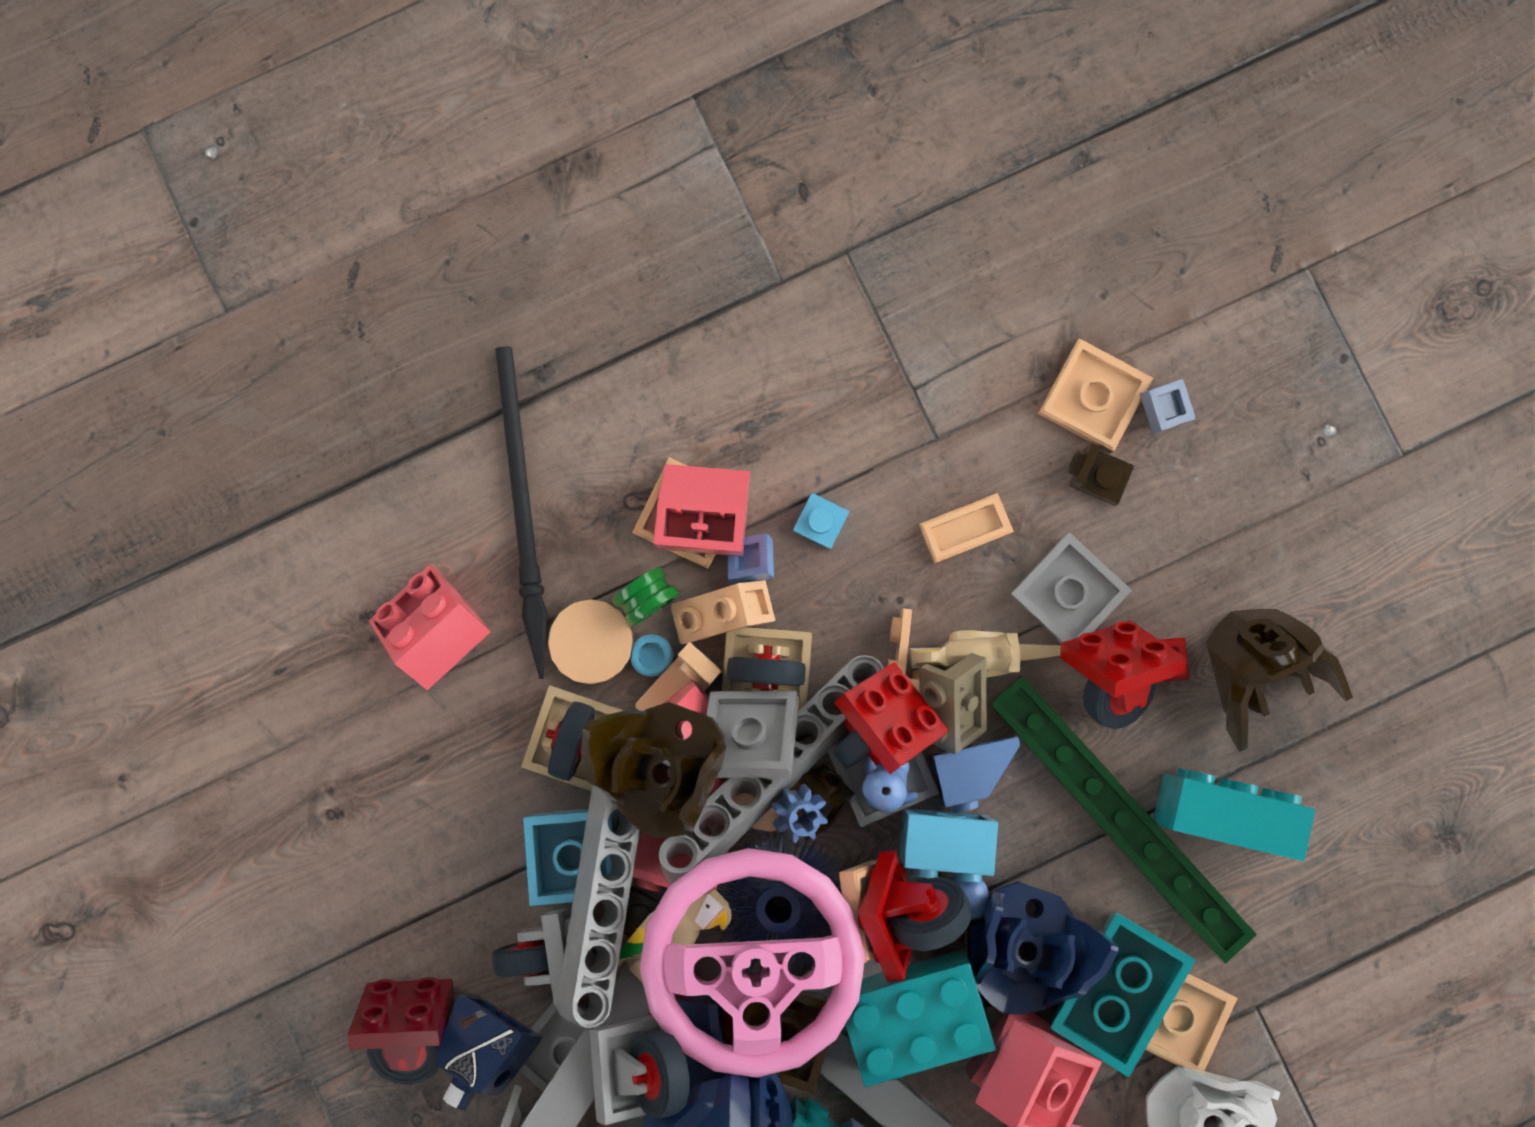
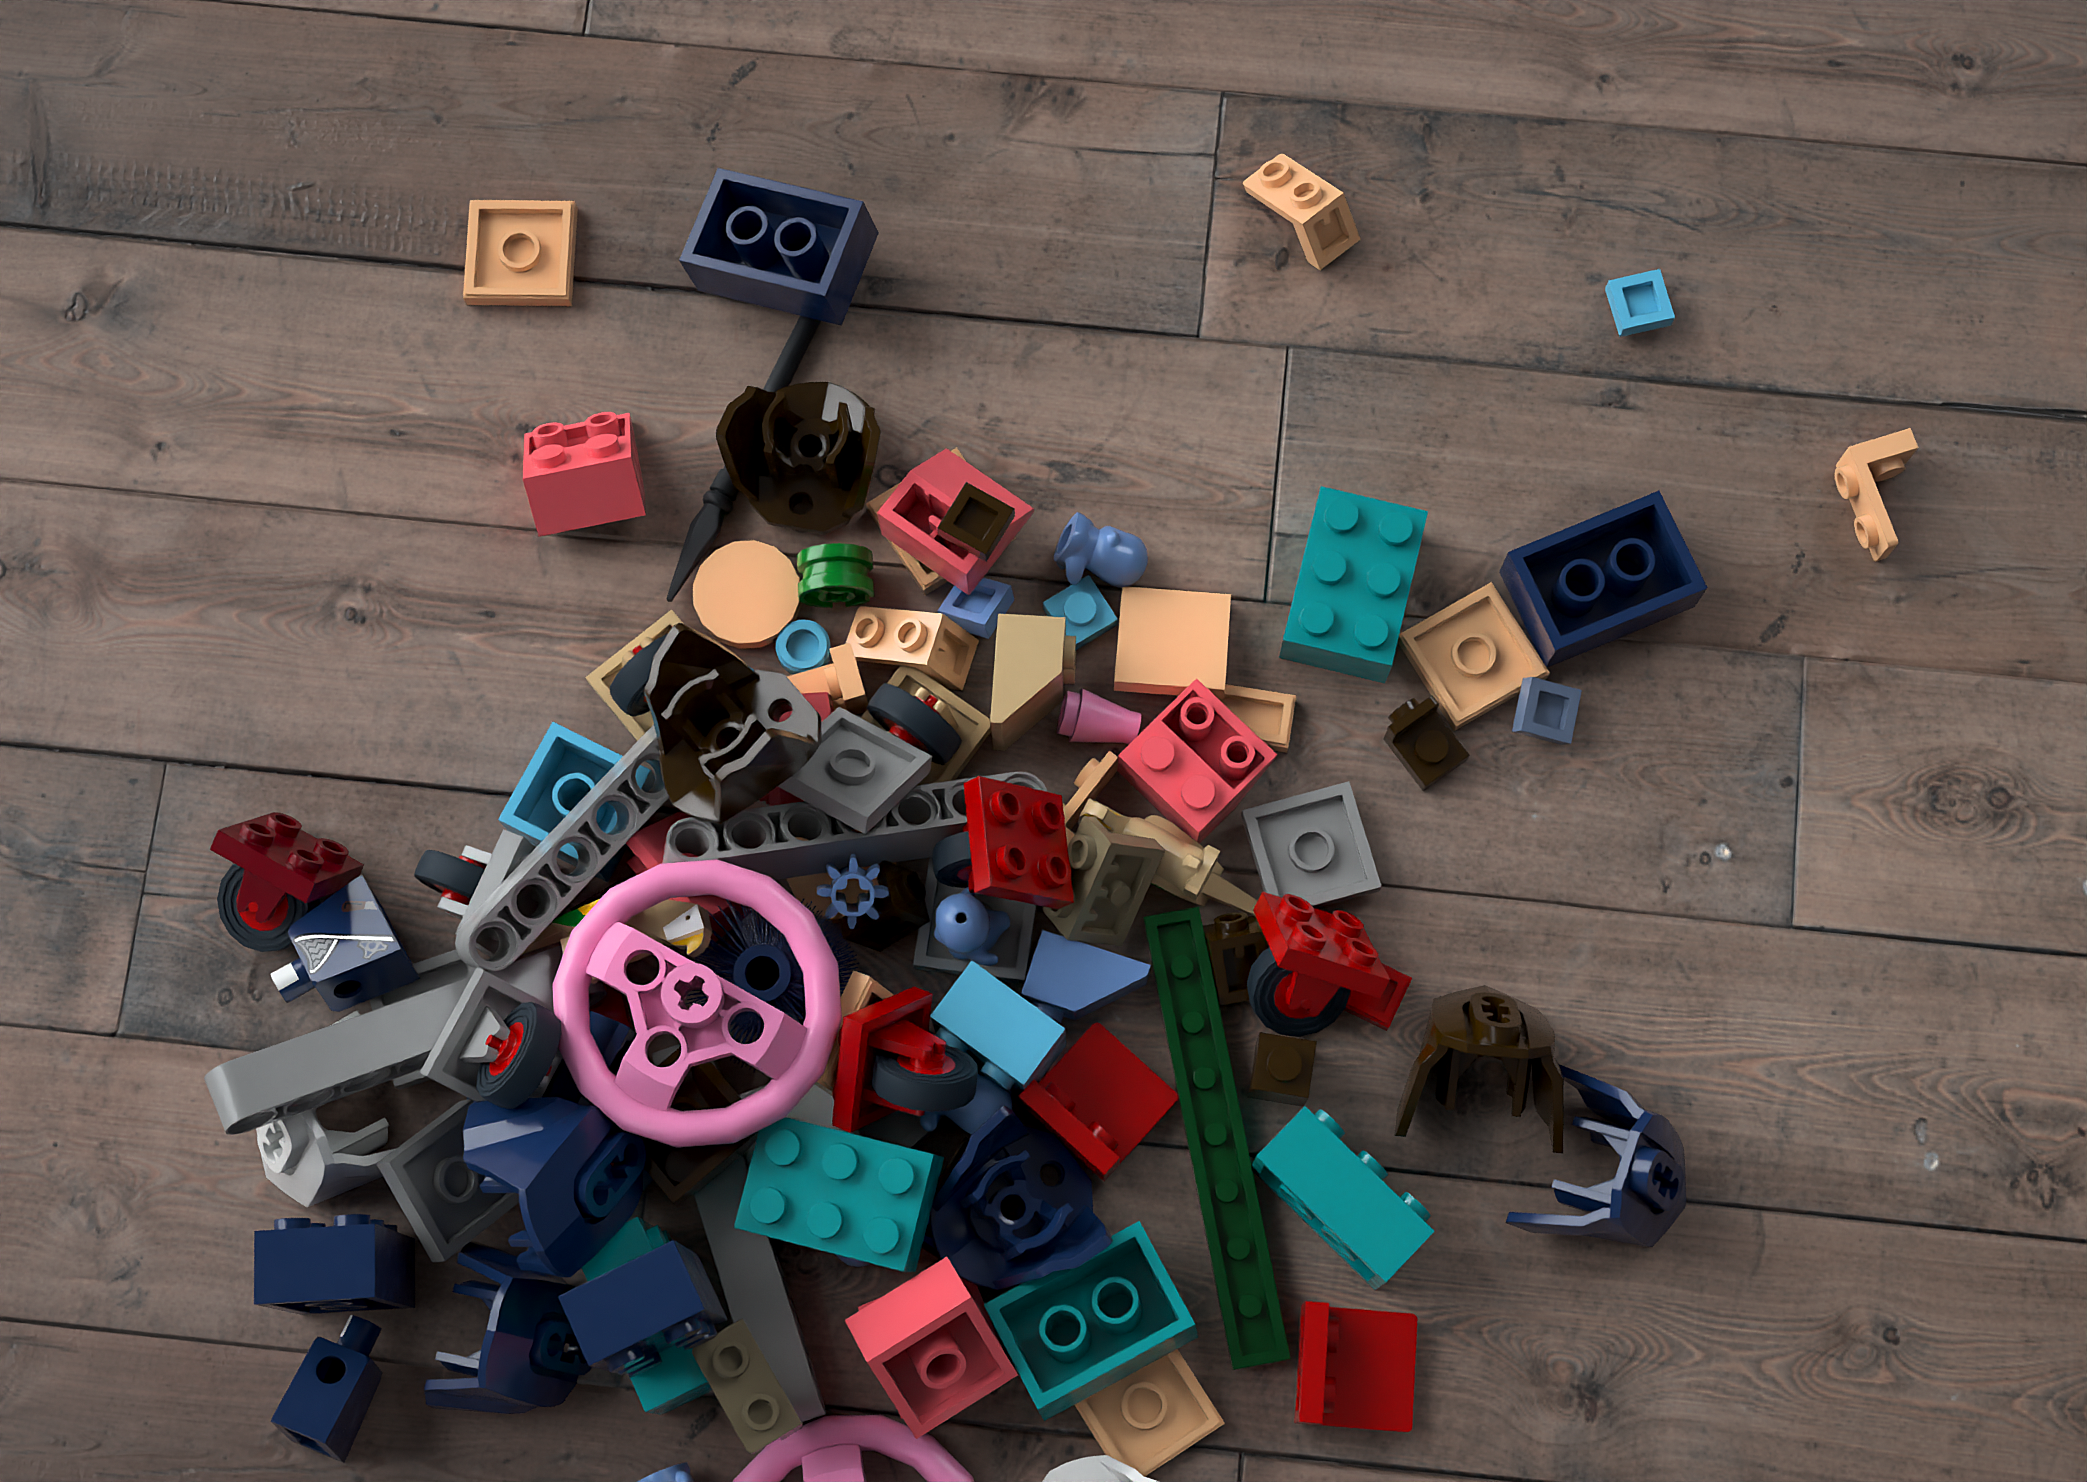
camera: 30 degrees right, 10 degrees down
(282, 495) = (520, 253): none -> light nougat tile
(463, 390) = (779, 246): none -> dark blue brick
(540, 527) = (767, 444): none -> dark brown piece
(727, 513) = (976, 521): none -> dark brown plate
(800, 144) = (1308, 202): none -> light nougat bracket
(815, 471) = (1106, 552): none -> medium blue animal
(818, 588) = (1029, 673): none -> tan slope
(876, 589) = (1095, 719): none -> bright pink cone
(896, 506) = (1171, 641): none -> light nougat tile
(963, 579) = (1195, 761): none -> coral slope
(992, 395) = (1353, 584): none -> teal brick
(1036, 842) = (1099, 1100): none -> red bracket
(1063, 84) = (1639, 302): none -> medium azure plate
(1063, 691) = (1233, 947): none -> dark brown bracket
(1140, 751) = (1282, 1069): none -> dark brown brick
(1155, 295) = (1602, 579): none -> dark blue brick
(1279, 128) = (1855, 480): none -> light nougat bracket
(1298, 914) = (1355, 1368): none -> red bracket
(1420, 689) = (1649, 1182): none -> dark blue piece

